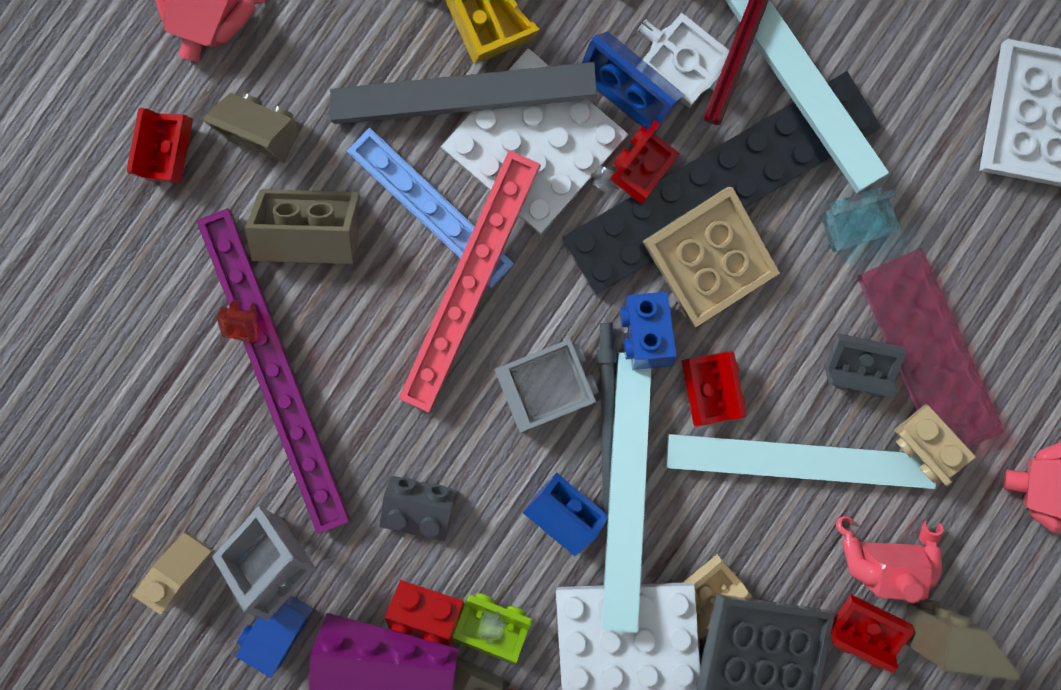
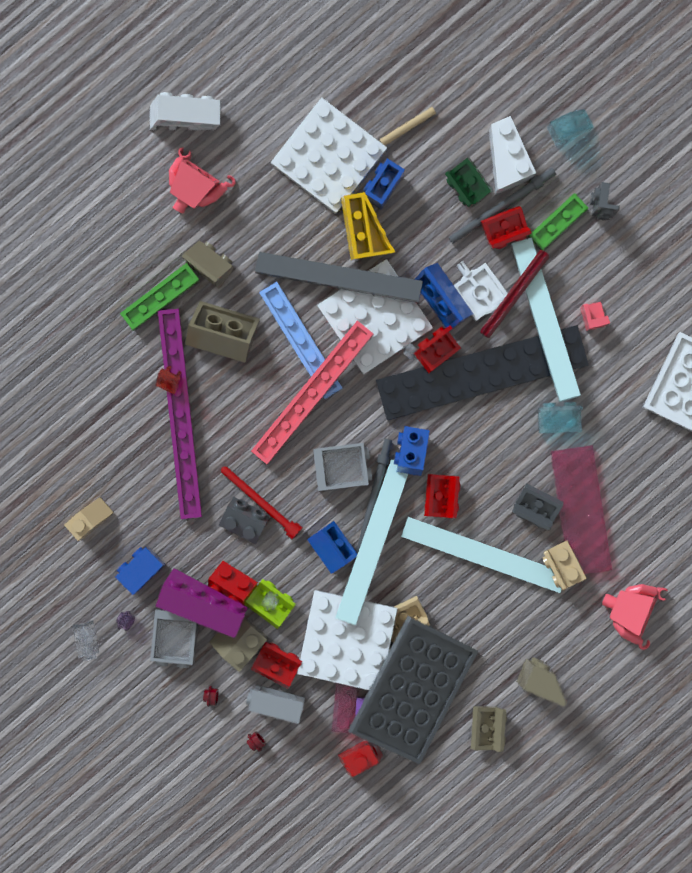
camera: 20 degrees right, 0 degrees up
(159, 146) = (147, 260): red bracket -> none
(194, 198) = (159, 296): none -> bright green plate
(263, 563) = (145, 526): light grey window -> none
(493, 501) = (291, 528): none -> red piece
(711, 256) = (462, 416): tan plate -> none
(867, 52) = (594, 316): none -> coral panel
(870, 633) = (496, 668): red bracket -> none
(895, 569) = (521, 632): coral torso -> none

